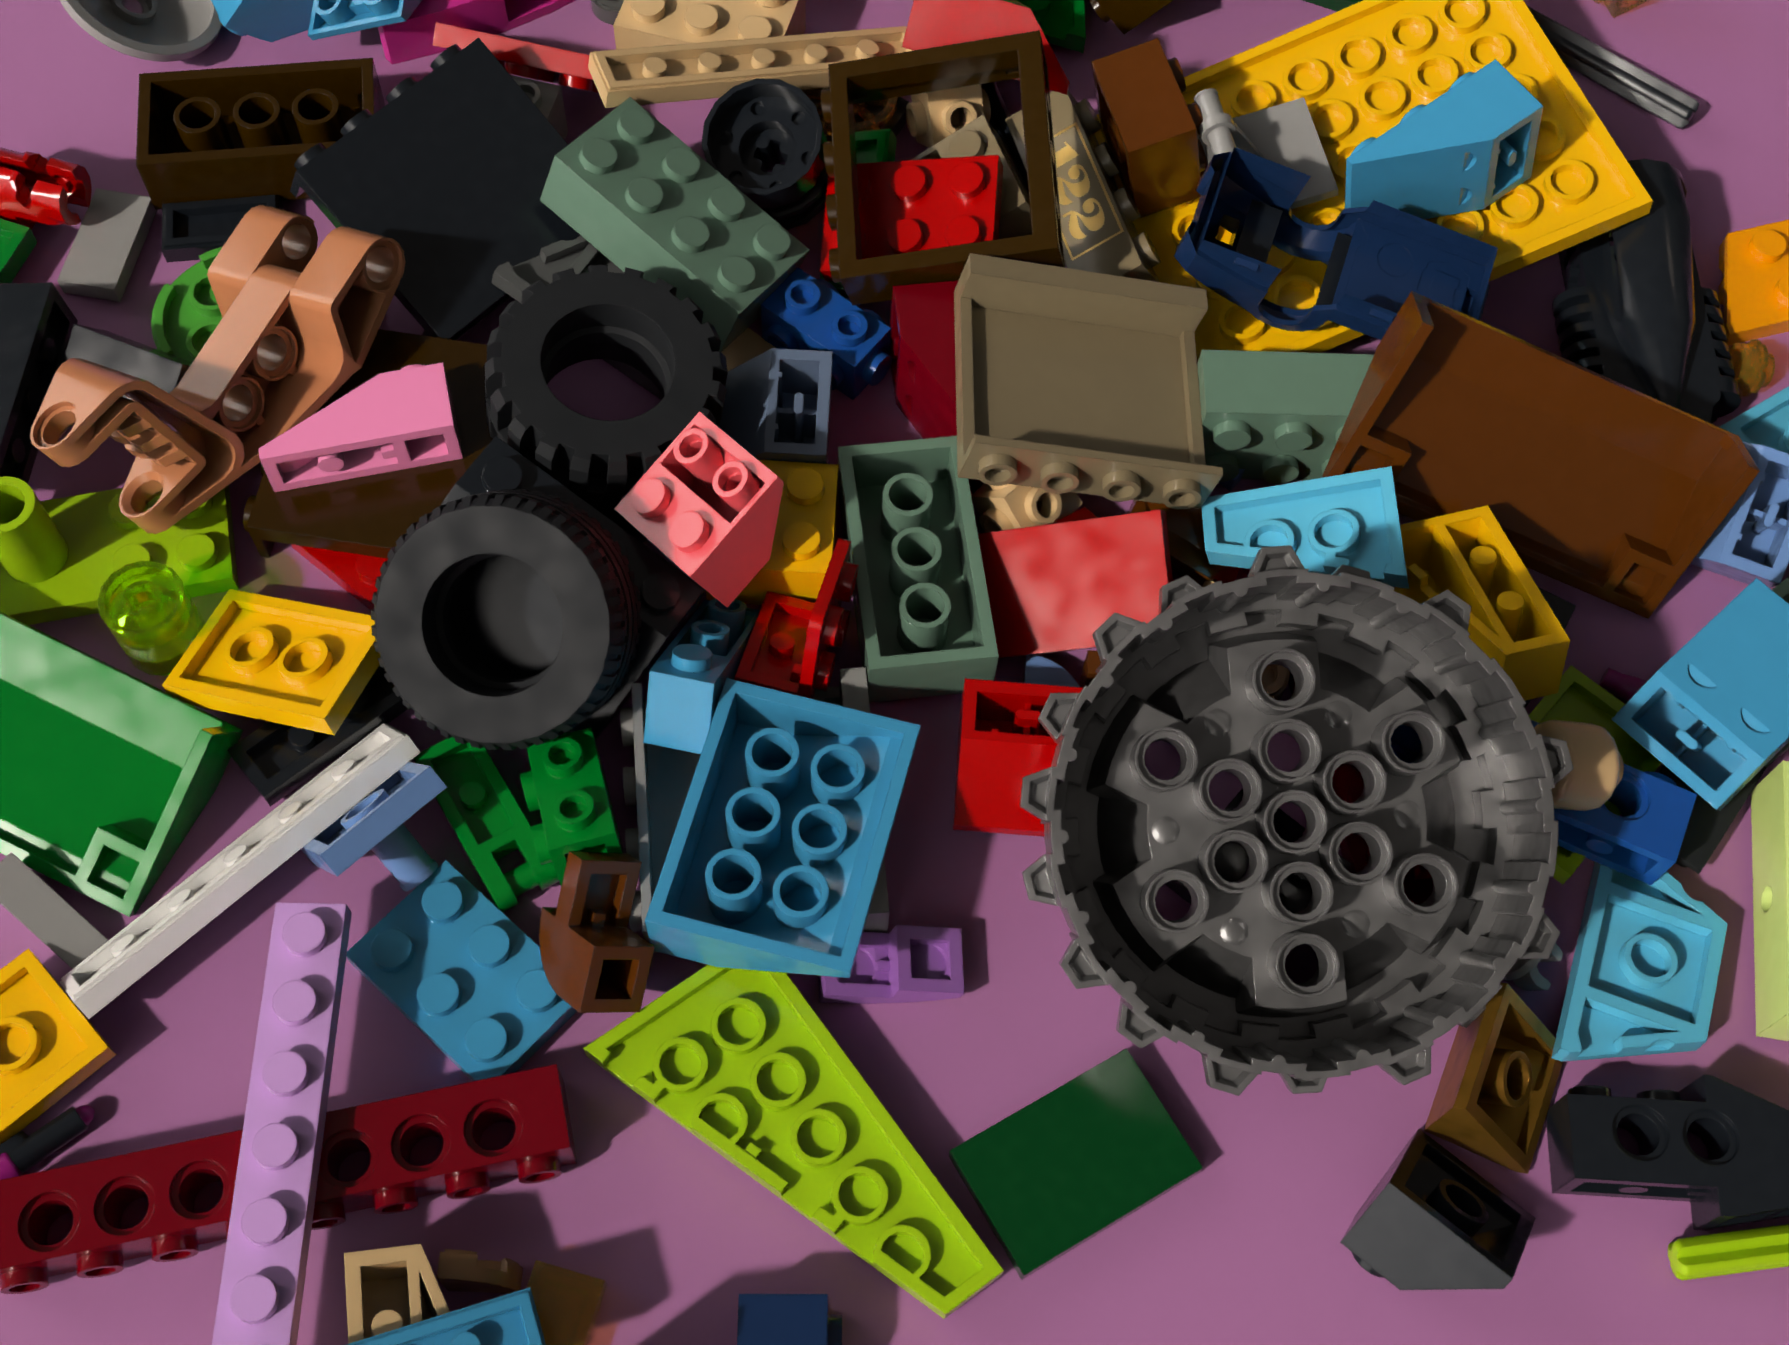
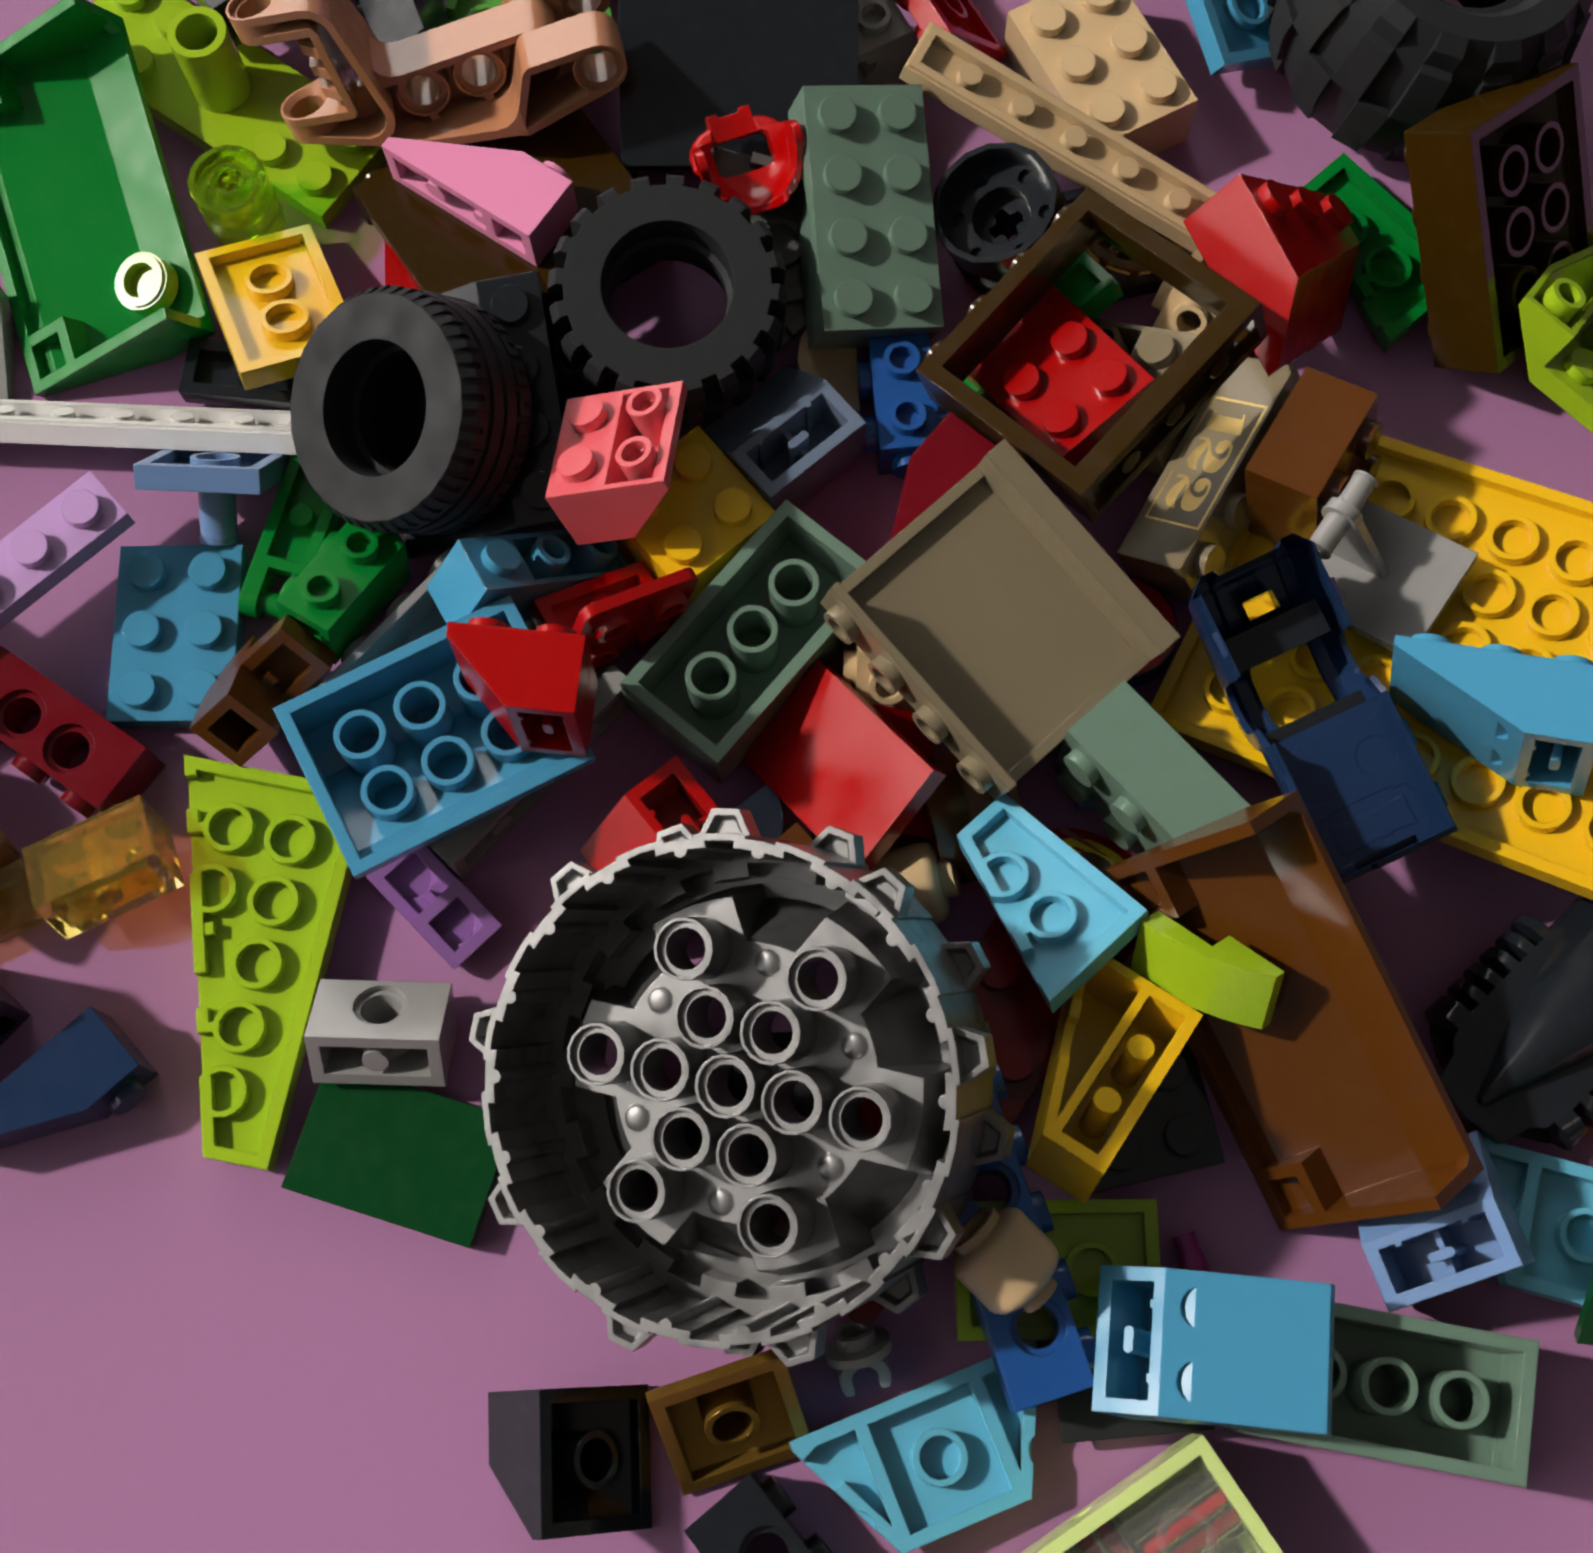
camera: 55 degrees right, 10 degrees up
(143, 743) = (146, 283): none -> tile
(570, 220) = (763, 187): none -> red helmet
(619, 1188) = (98, 867): none -> clear yellow brick
(839, 701) = (531, 681): none -> red slope
(973, 1082) = (381, 1032): none -> light grey brick
(1474, 473) = (1214, 979): none -> lime slope

